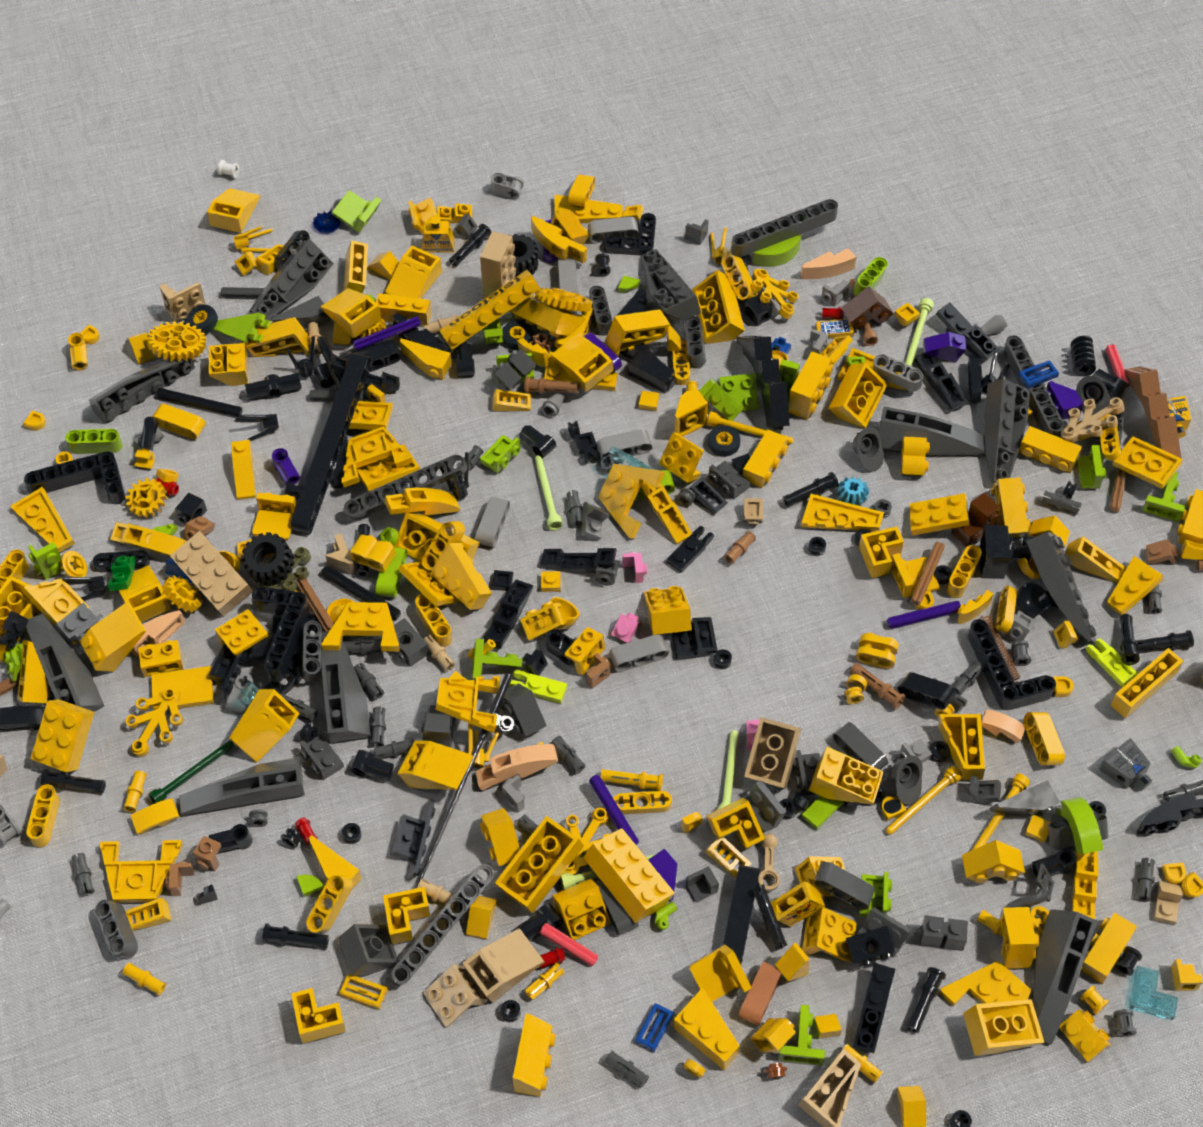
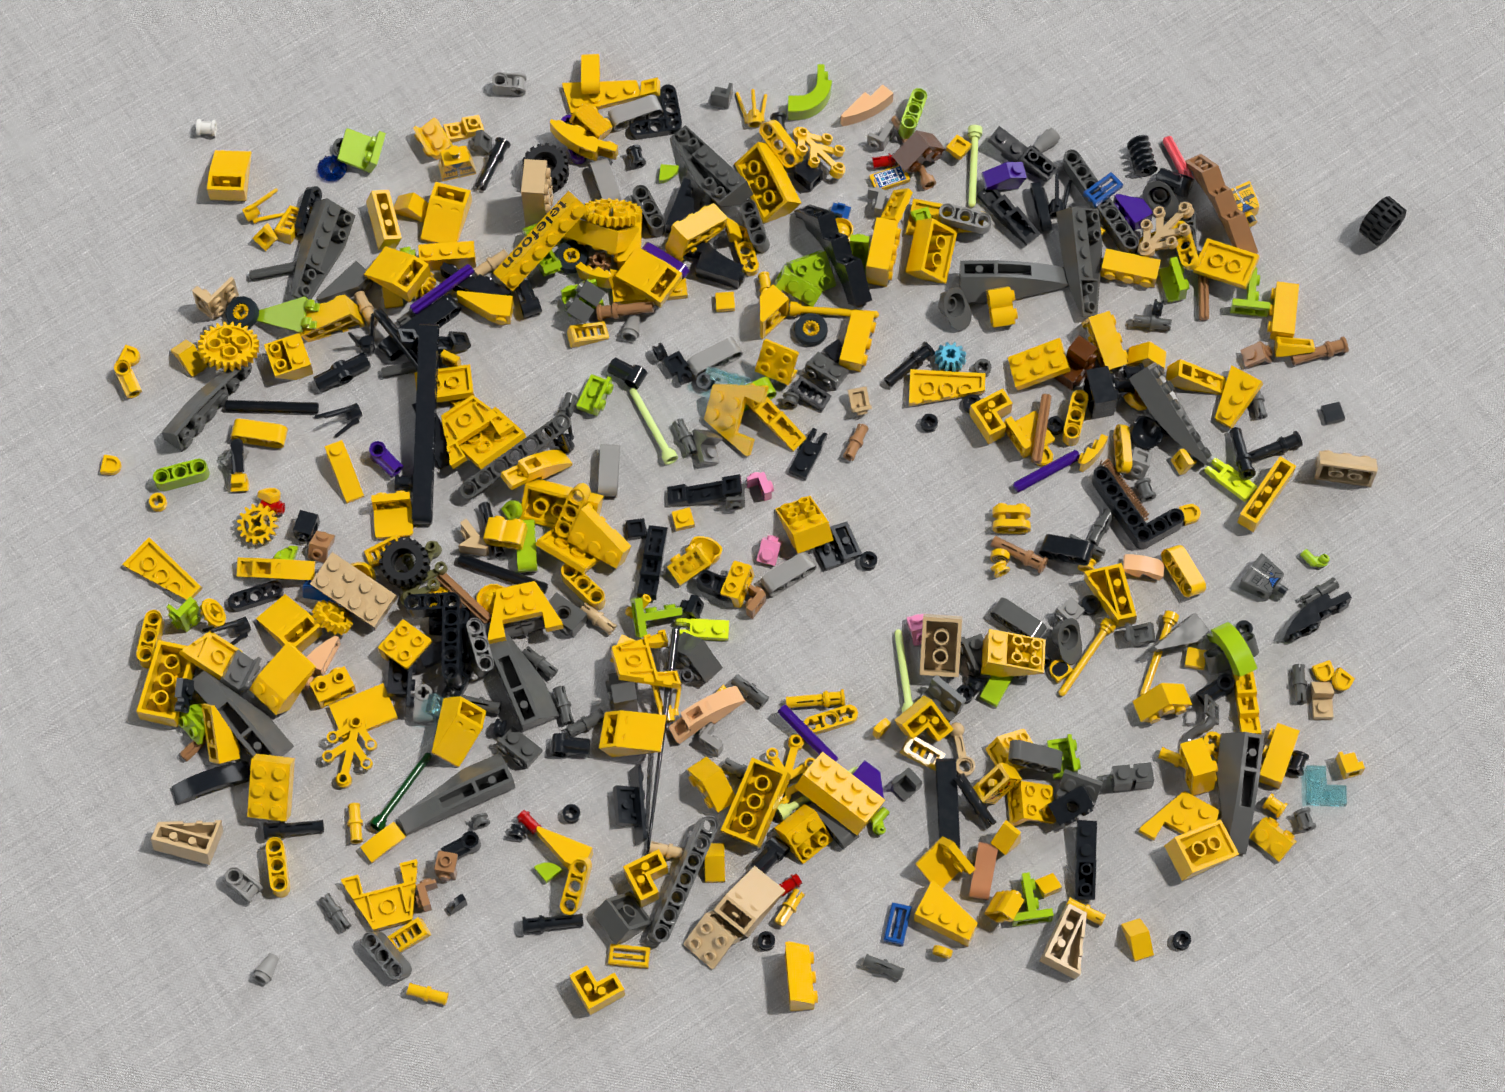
camera: 15 degrees left, 10 degrees up
(80, 471) = (182, 514): black beam -> none
(122, 573) = (265, 610): green slope -> none
(569, 944) = (801, 869): coral axle -> none
(776, 1071) = (1013, 936): dark orange plate -> none
(784, 228) = (811, 84): dark grey beam -> none
(928, 990) = (1129, 832): black pin -> none

